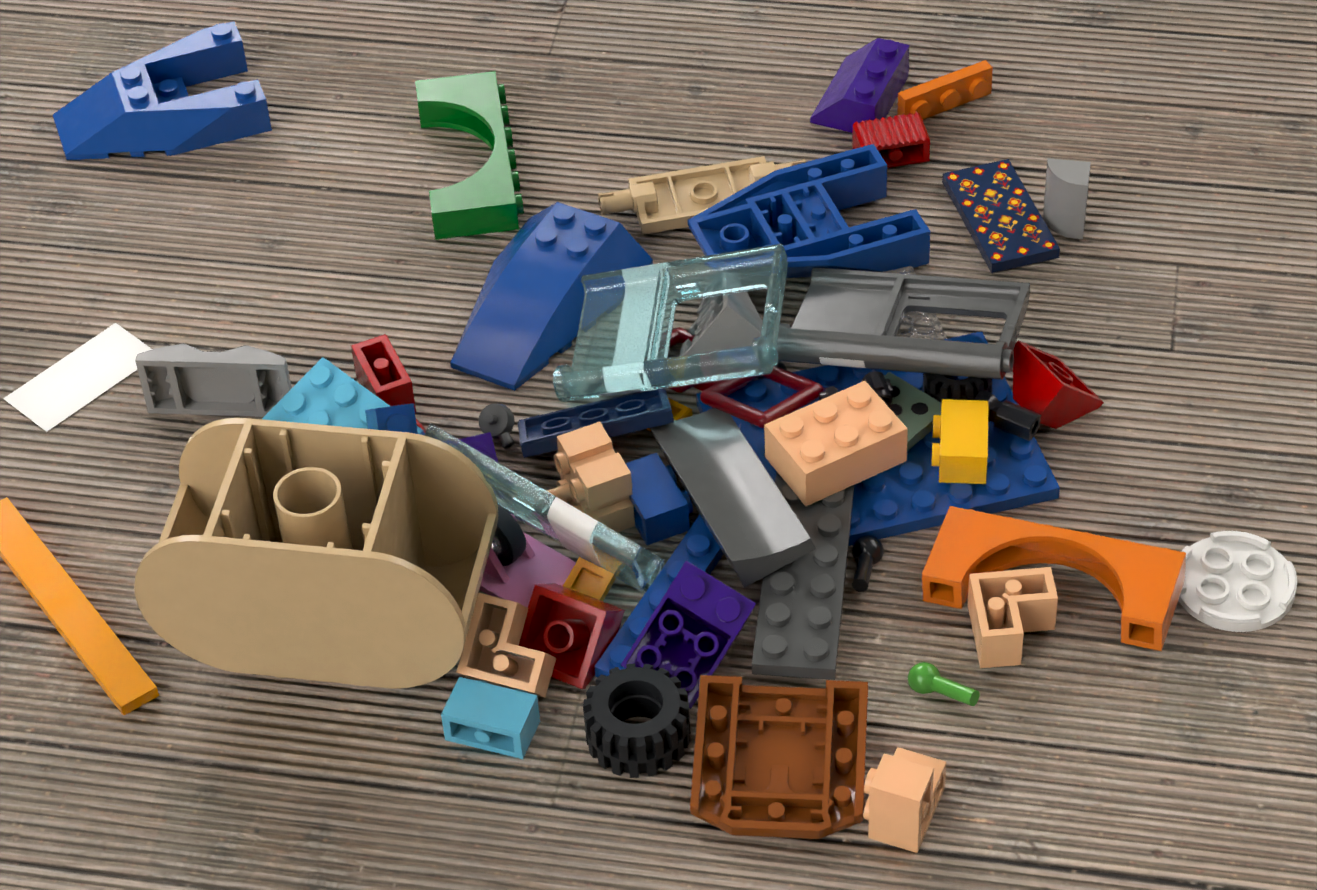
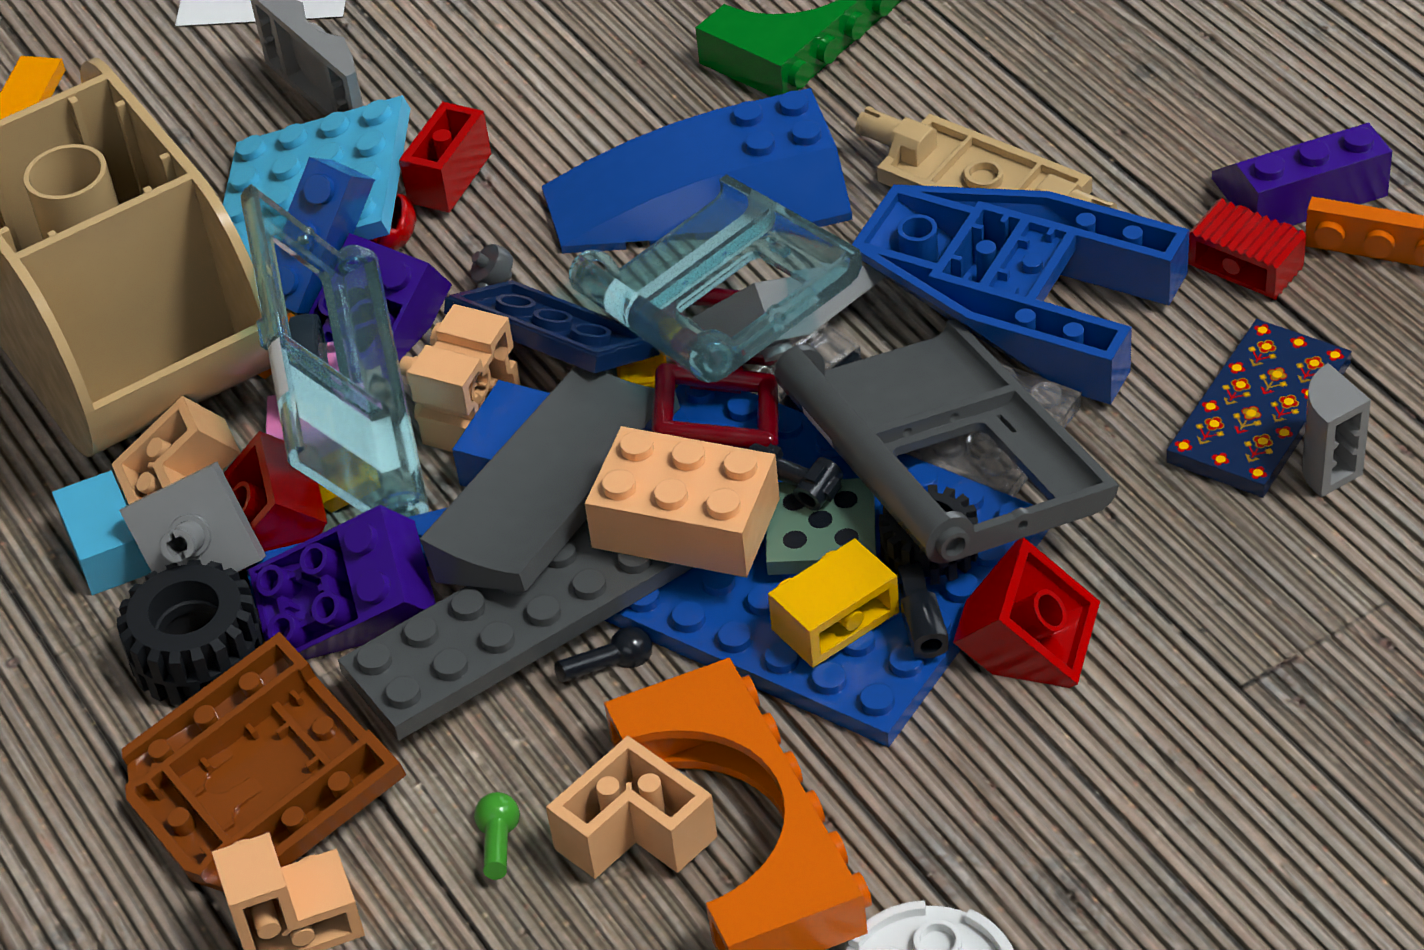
camera: 50 degrees right, 0 degrees up
(567, 663) = (193, 522): none -> light grey tile

